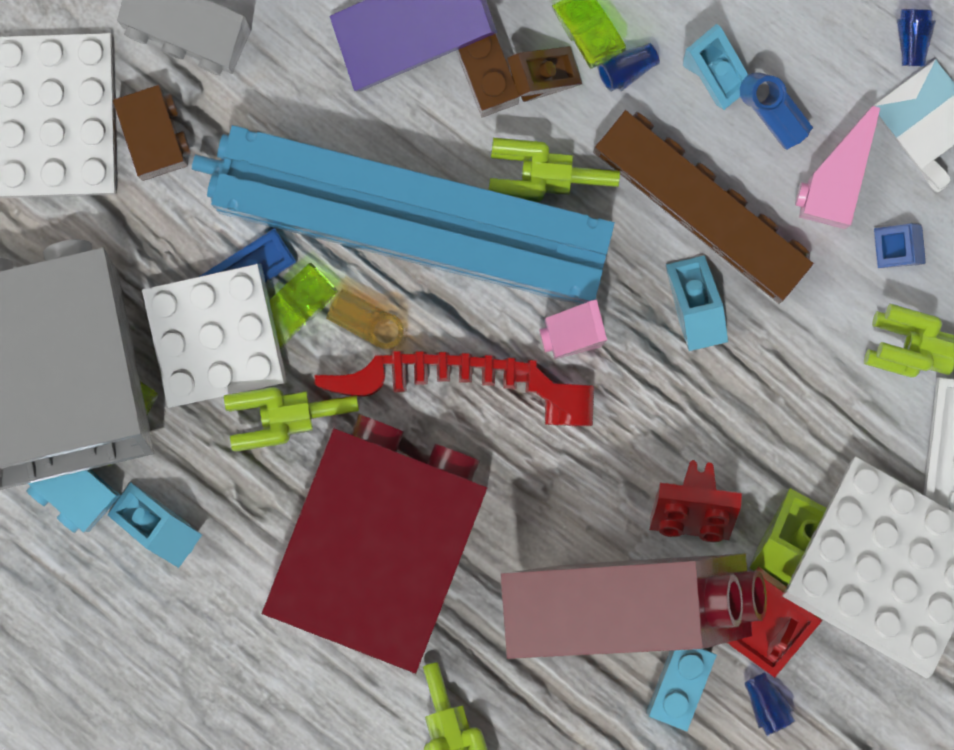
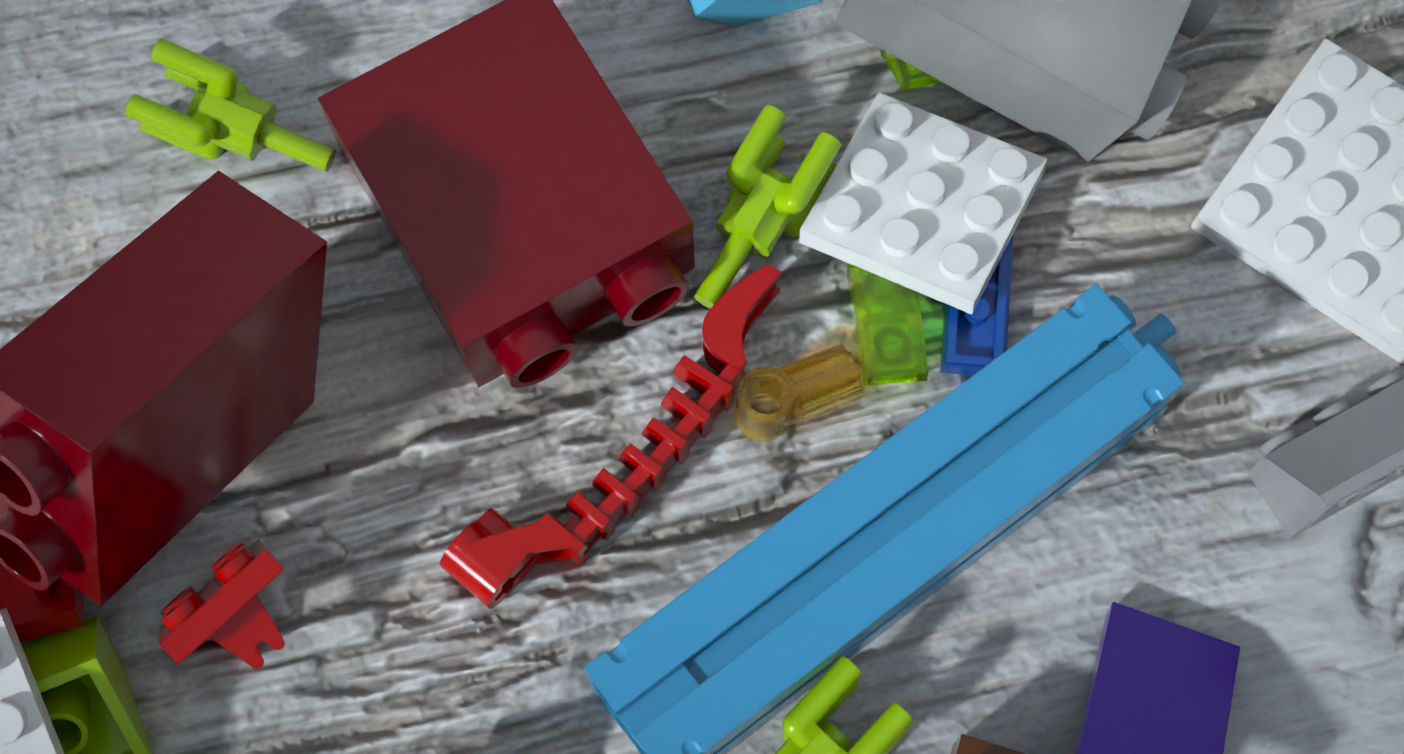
camera: 135 degrees right, 15 degrees down
(151, 132) = (1243, 311): reddish brown brick -> none
(574, 331) = (569, 626): bright pink slope -> none

